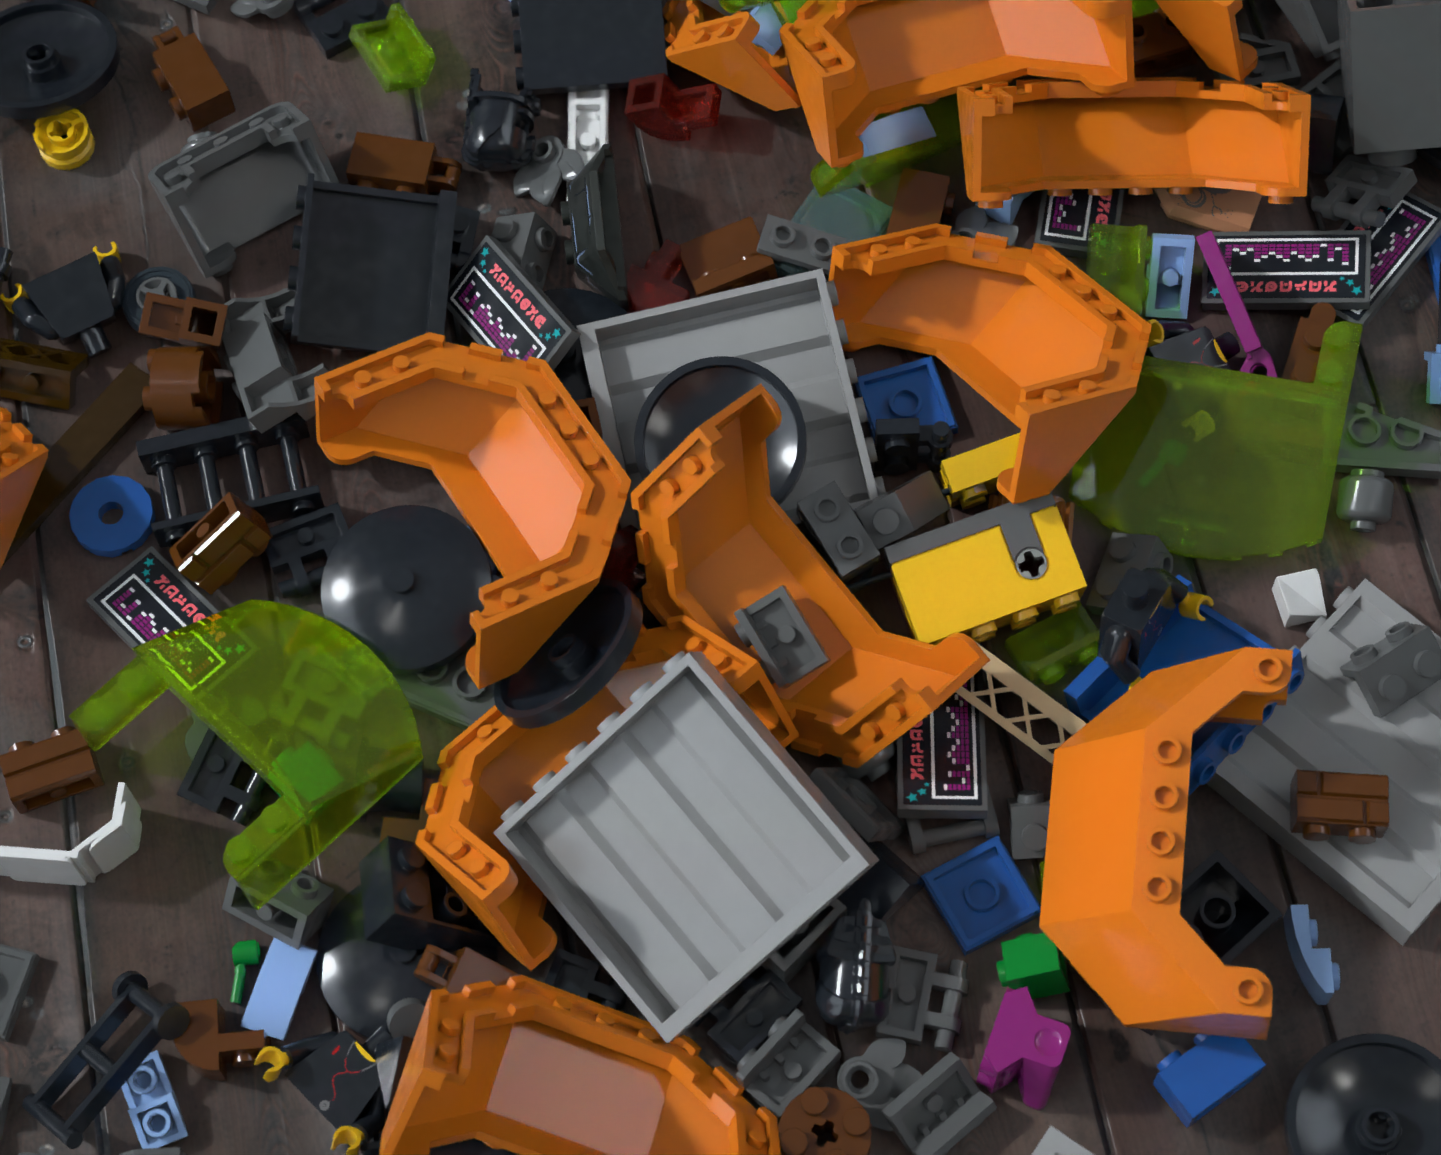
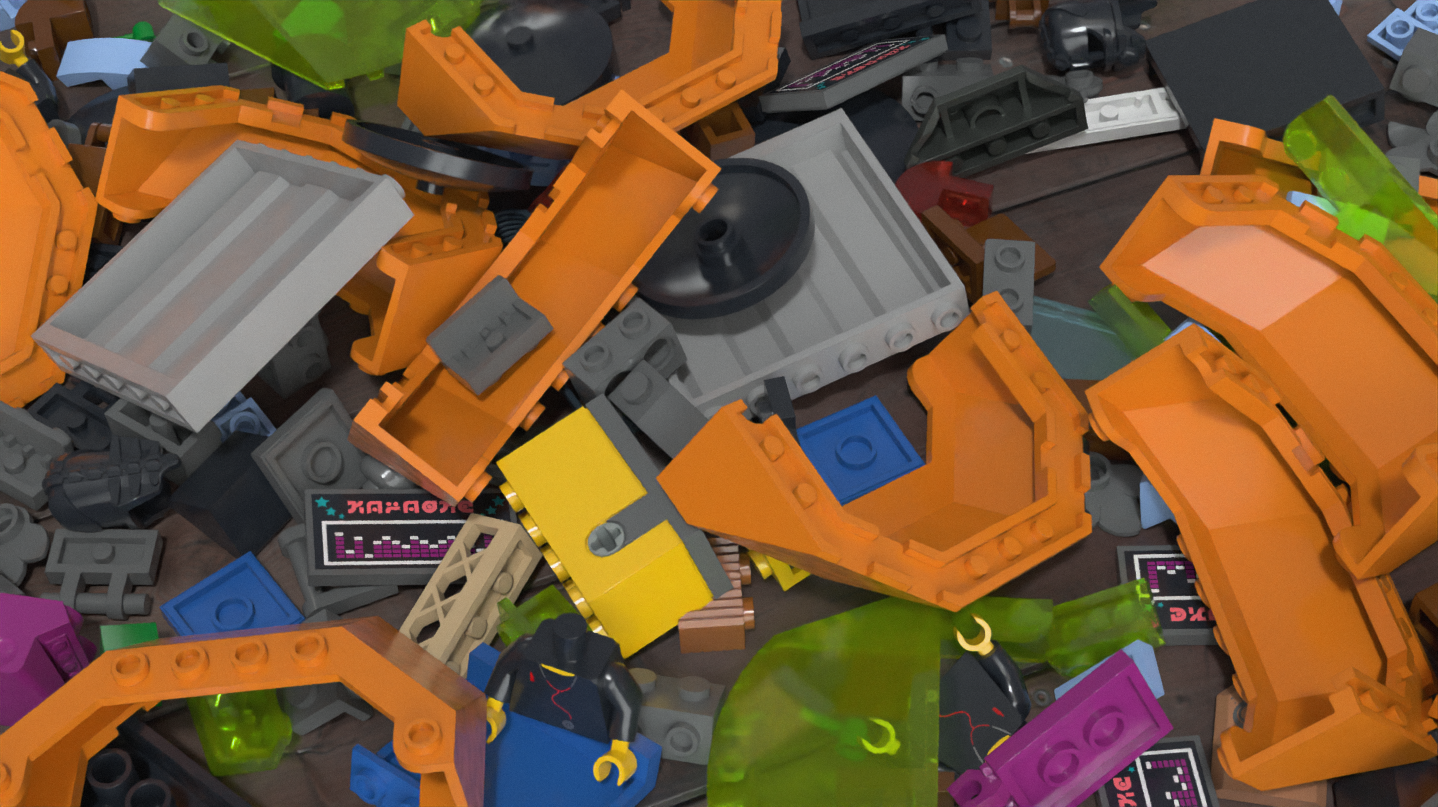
camera: 80 degrees right, 15 degrees down
(667, 111) = (1169, 150): clear red brick -> none

